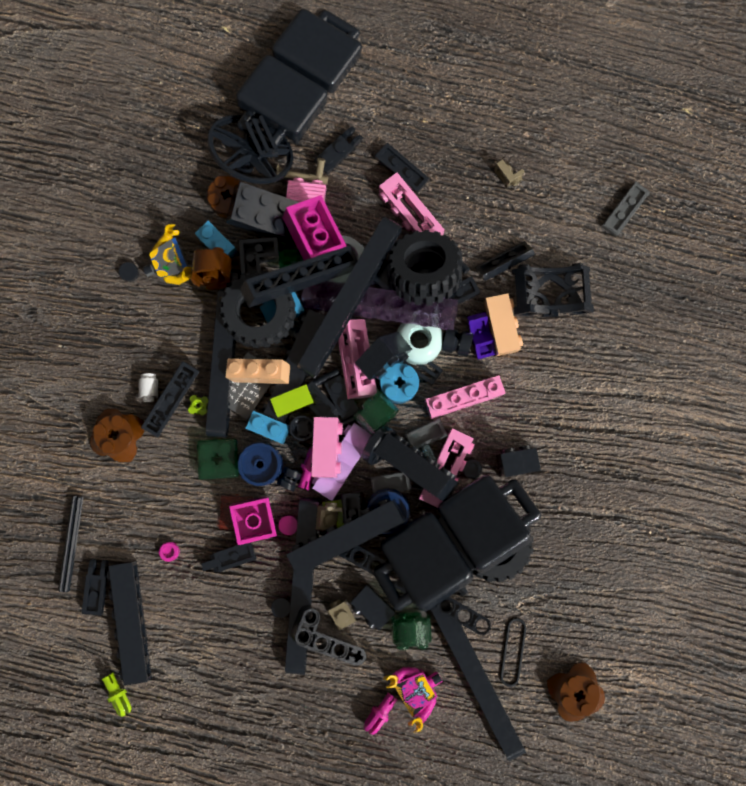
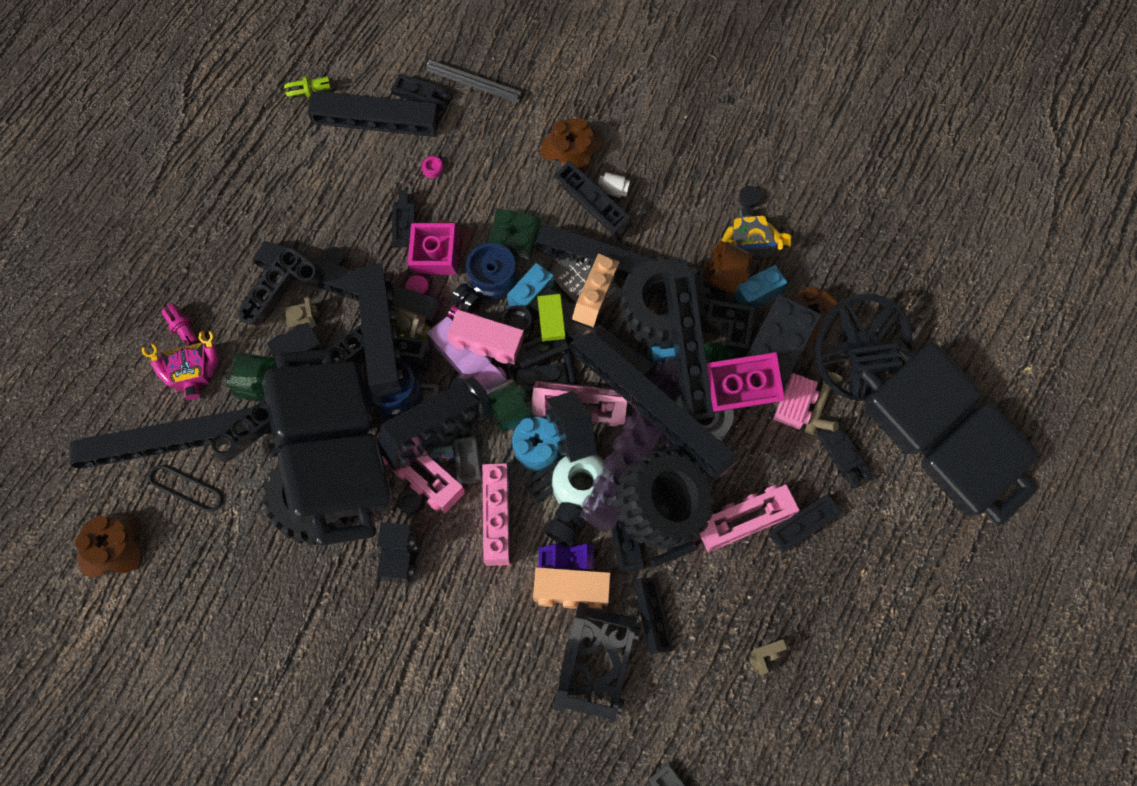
camera: 105 degrees right, 15 degrees down
(193, 406) = (585, 226): lime plate -> none

